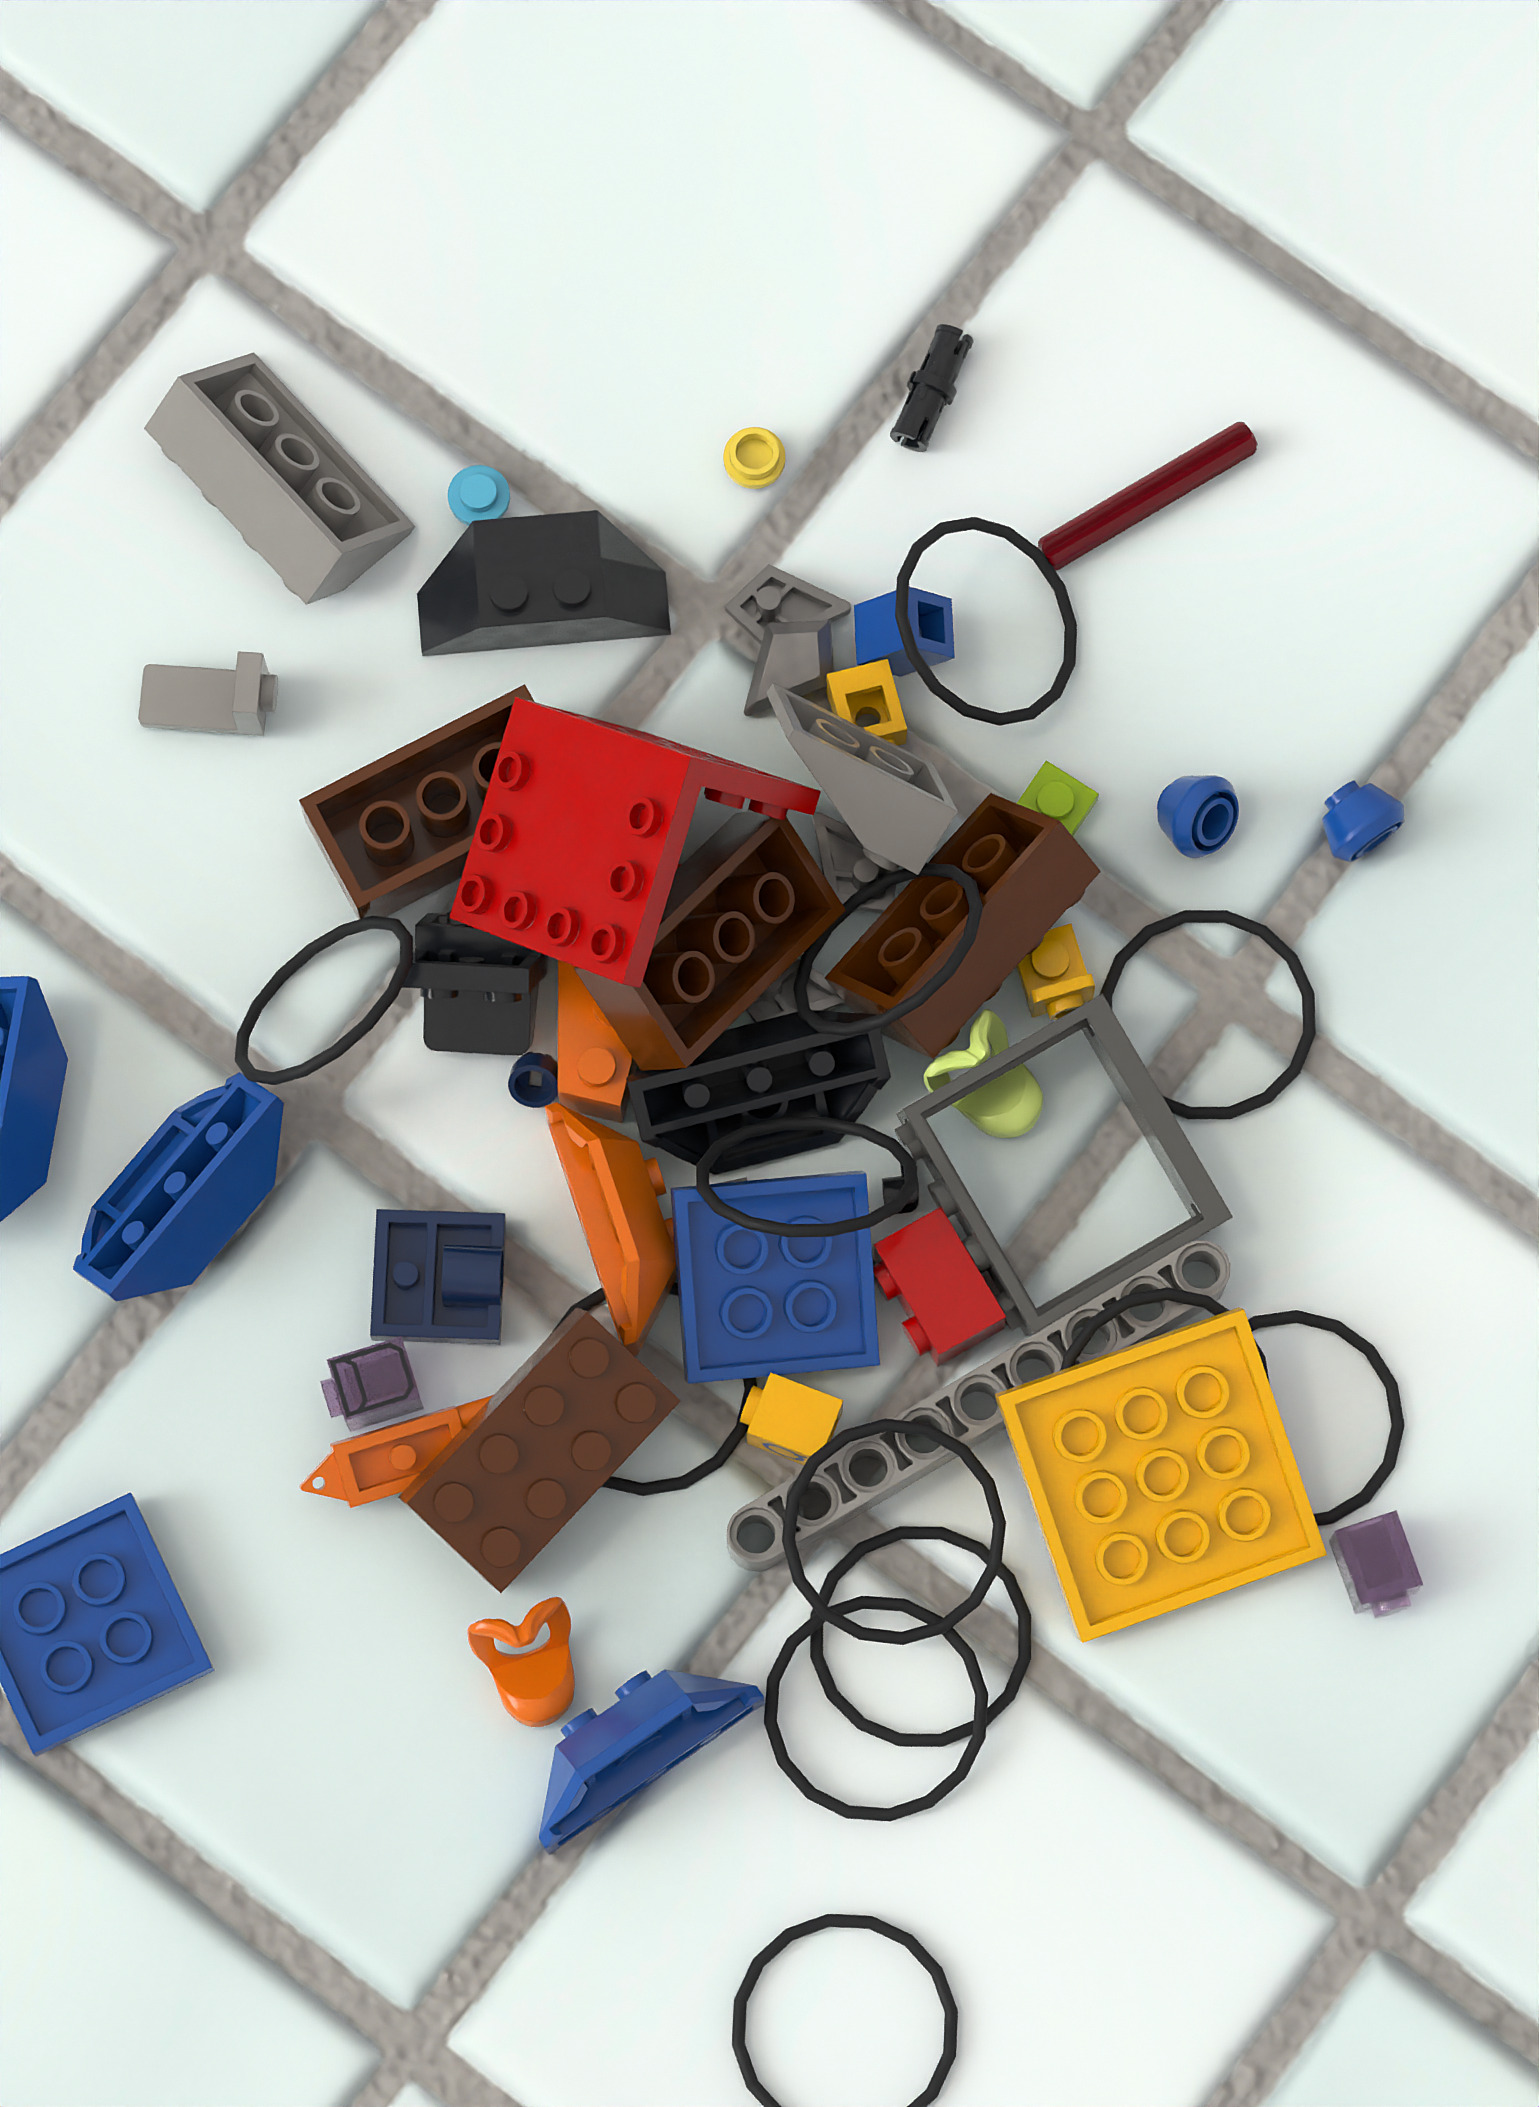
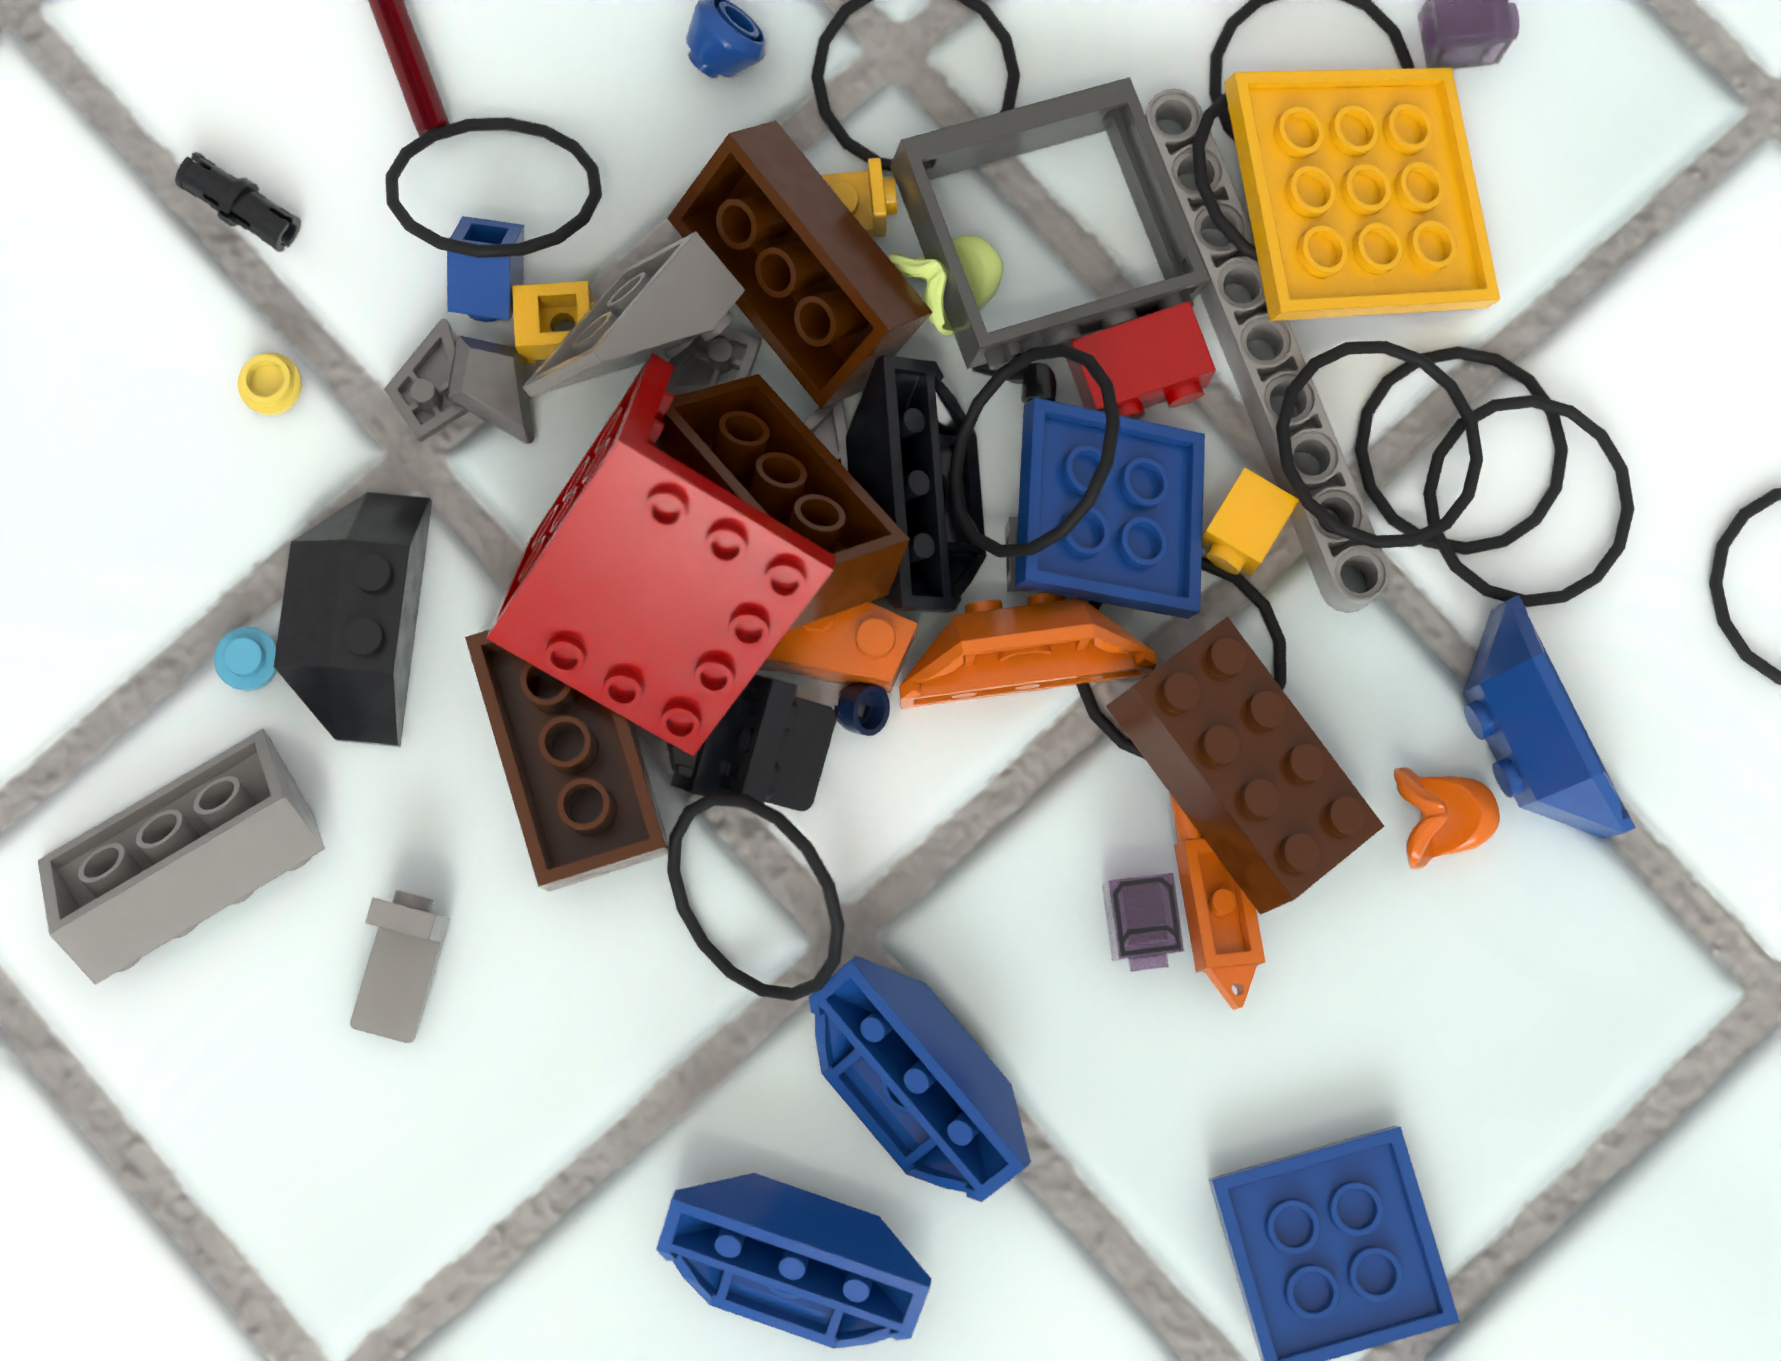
camera: 85 degrees left, 5 degrees up
(438, 1276) = (1044, 837): dark blue plate -> none
(928, 989) = (882, 283): black piece -> none
(1059, 797) = (676, 165): lime plate -> none

